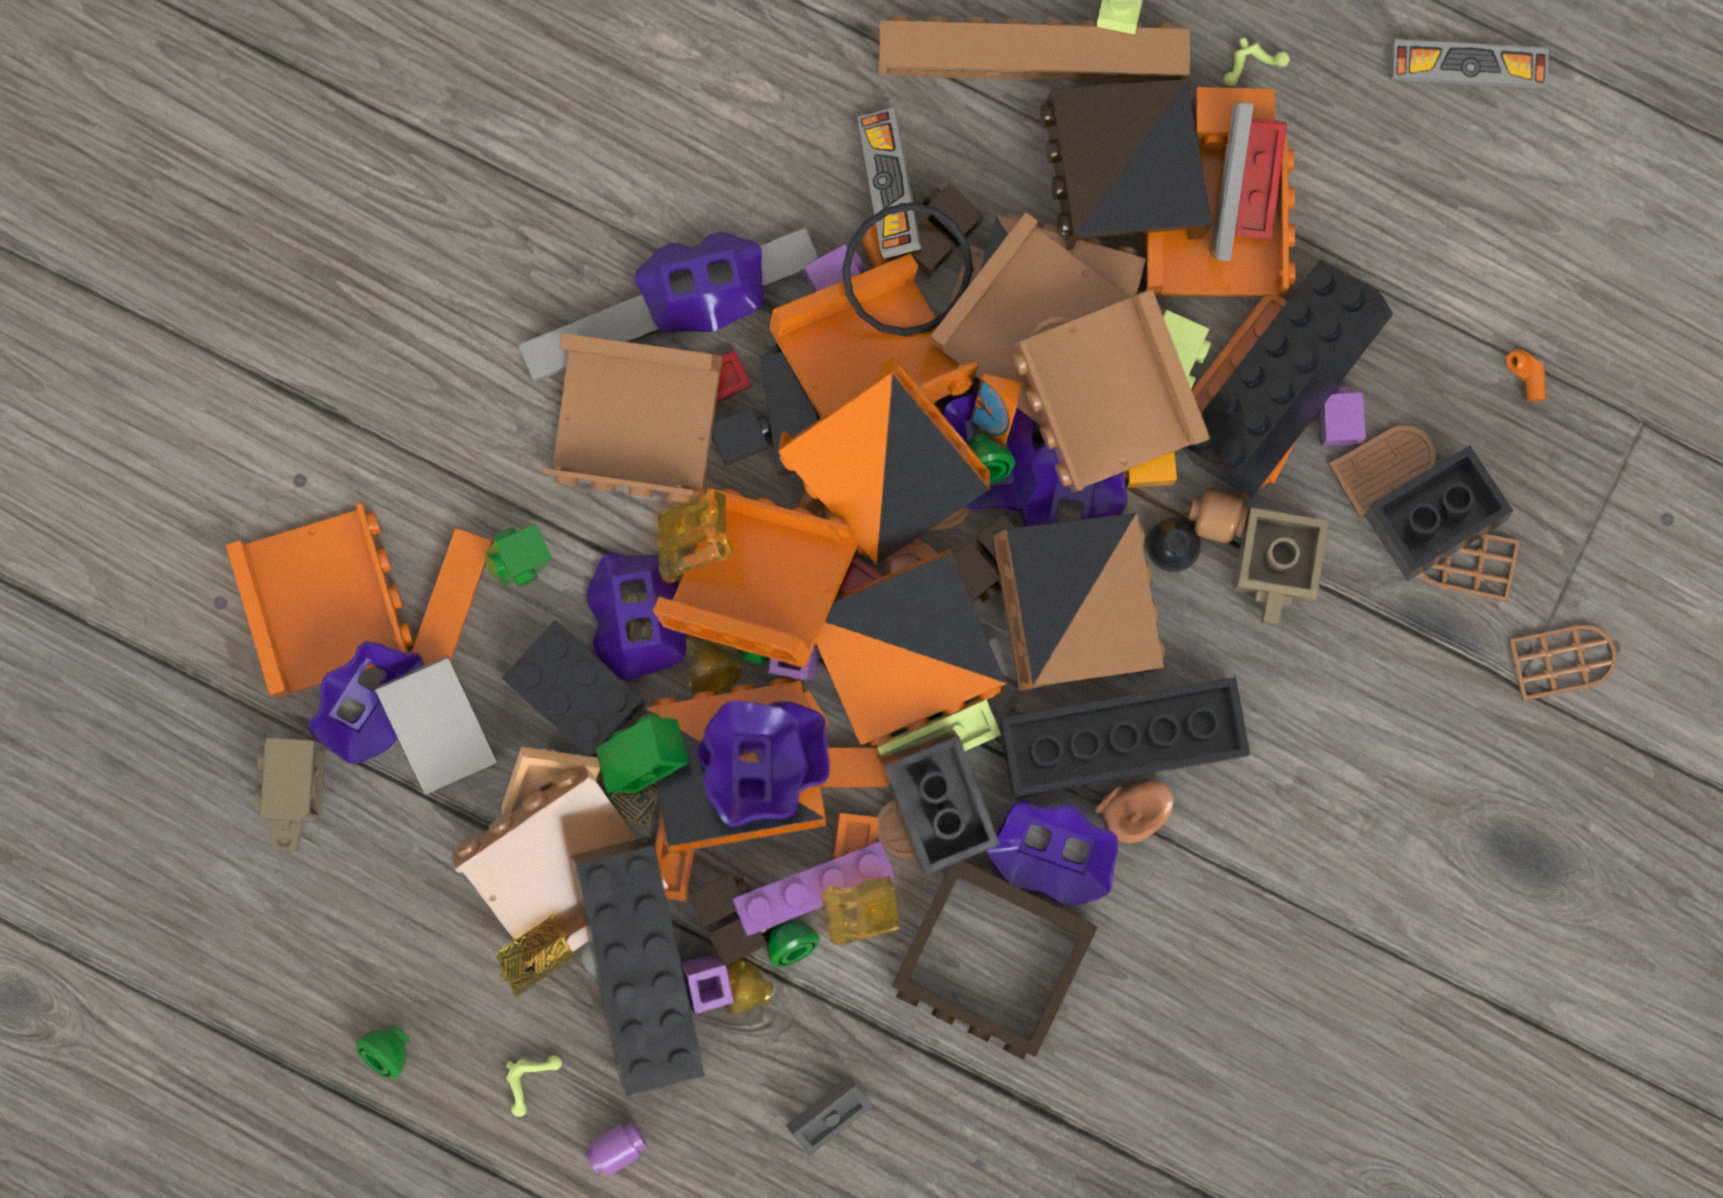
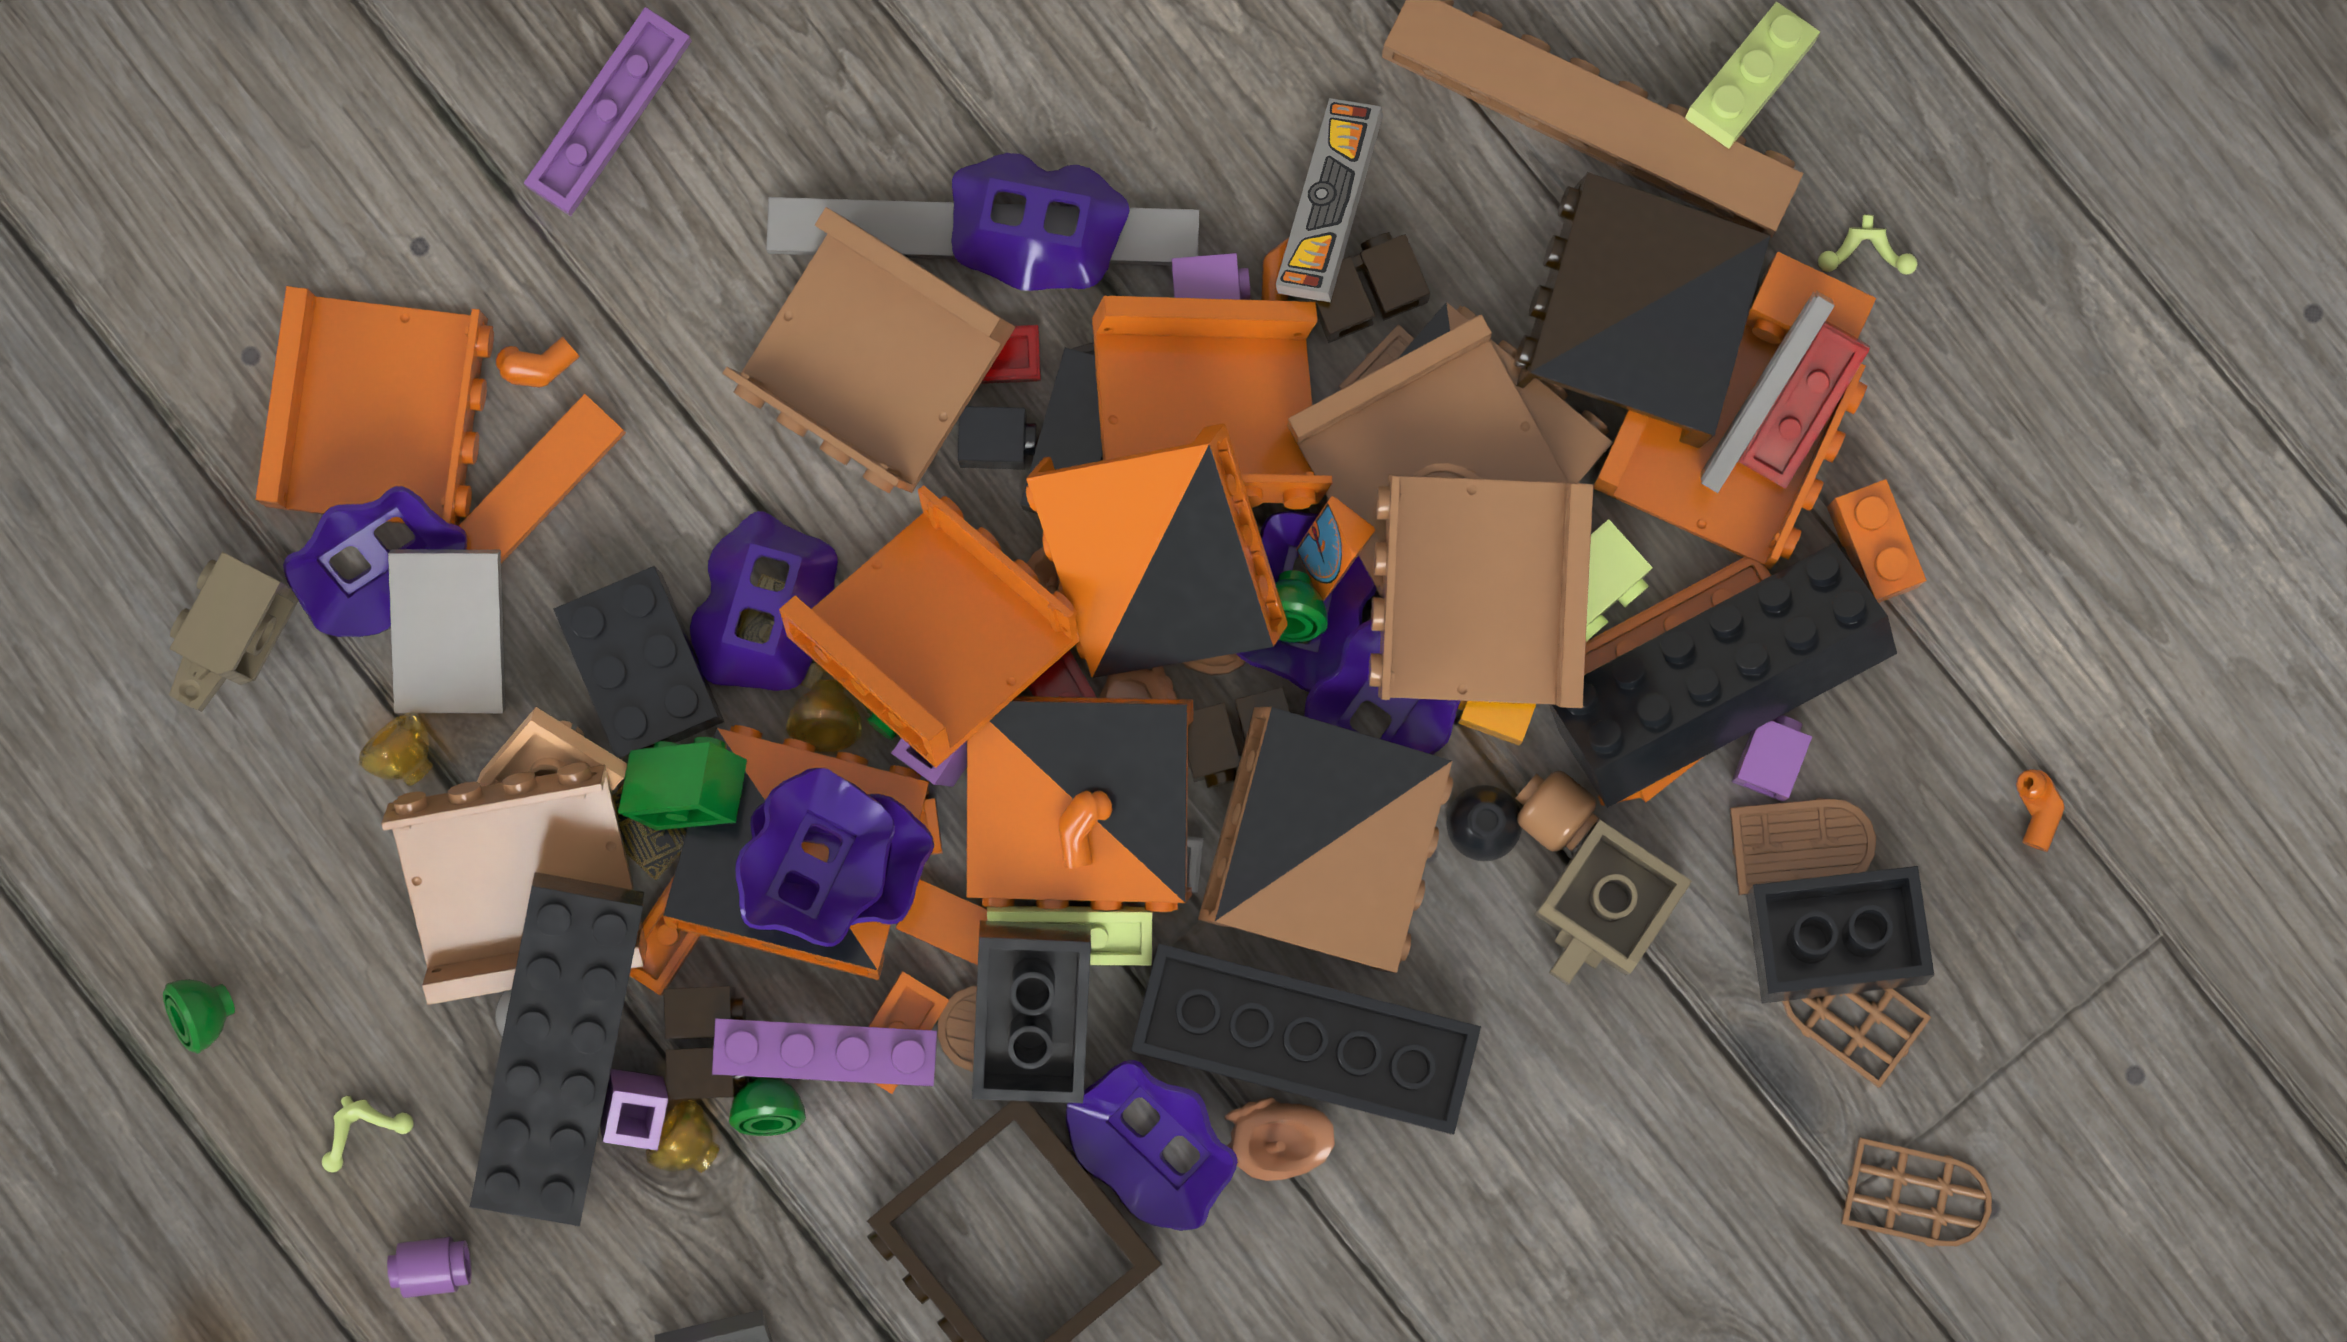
camera: 30 degrees right, 0 degrees up
(385, 335) = (607, 111): none -> medium lavender plate
(415, 526) = (532, 368): none -> orange arm
(439, 818) = (398, 750): none -> clear yellow brick
(517, 556) = (645, 464): green brick -> none
(534, 956) = (435, 978): clear yellow piece -> none
(688, 525) = (876, 523): clear yellow plate -> none
(858, 236) = (1258, 247): black piece -> none
(874, 910) = (889, 1110): clear yellow plate -> none
(912, 663) = (1076, 824): none -> orange arm
(1345, 245) = (1877, 540): none -> orange brick
(1469, 64) = (2147, 377): tile -> none

